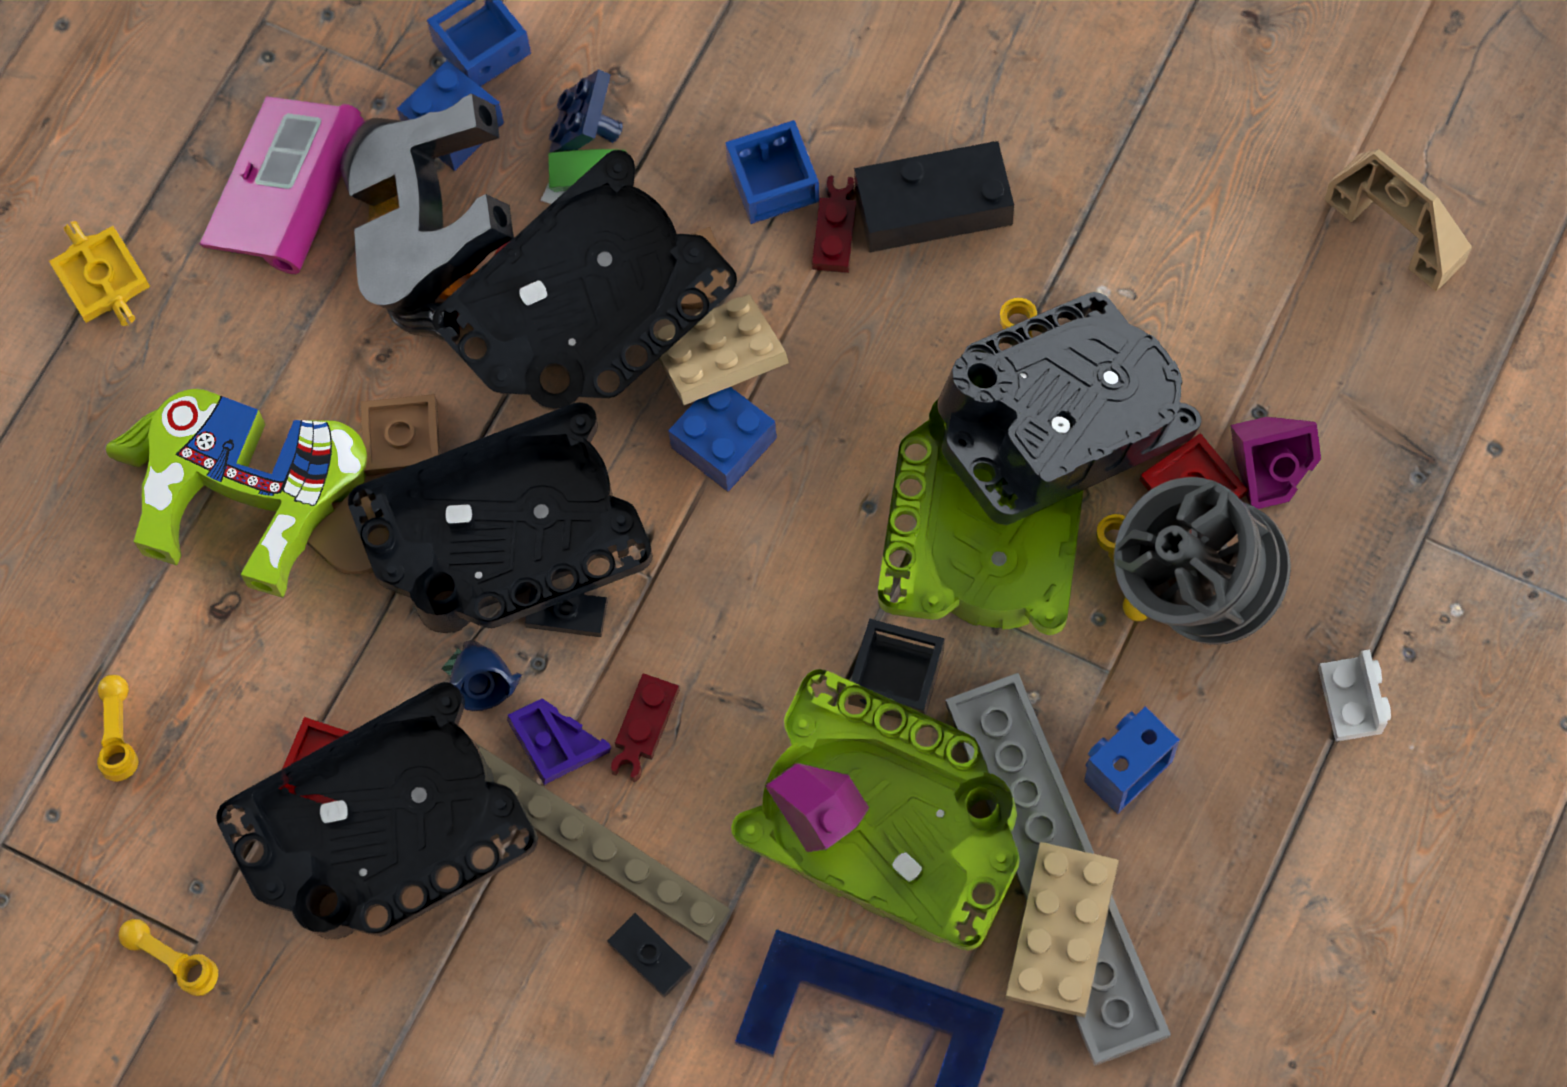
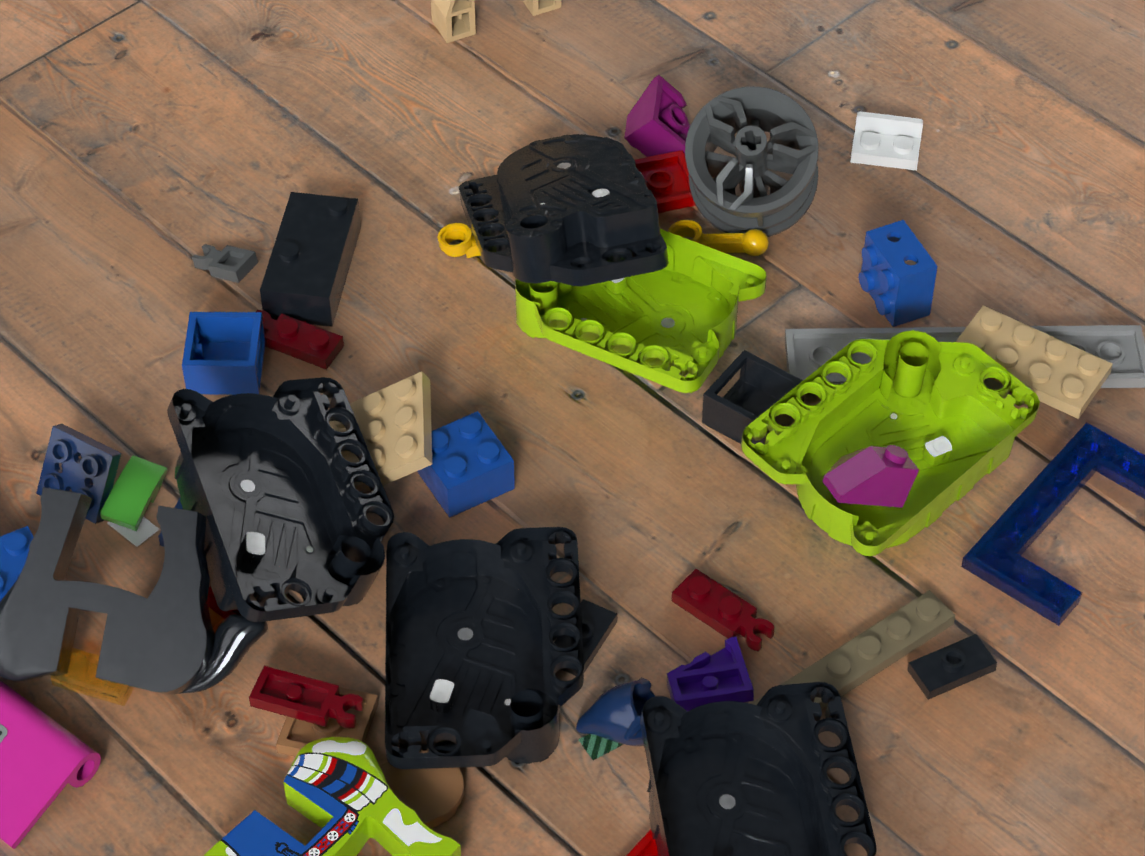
camera: 75 degrees left, 20 degrees down
(403, 401) = (303, 698): none -> dark red plate
(903, 125) = (228, 264): none -> dark grey plate

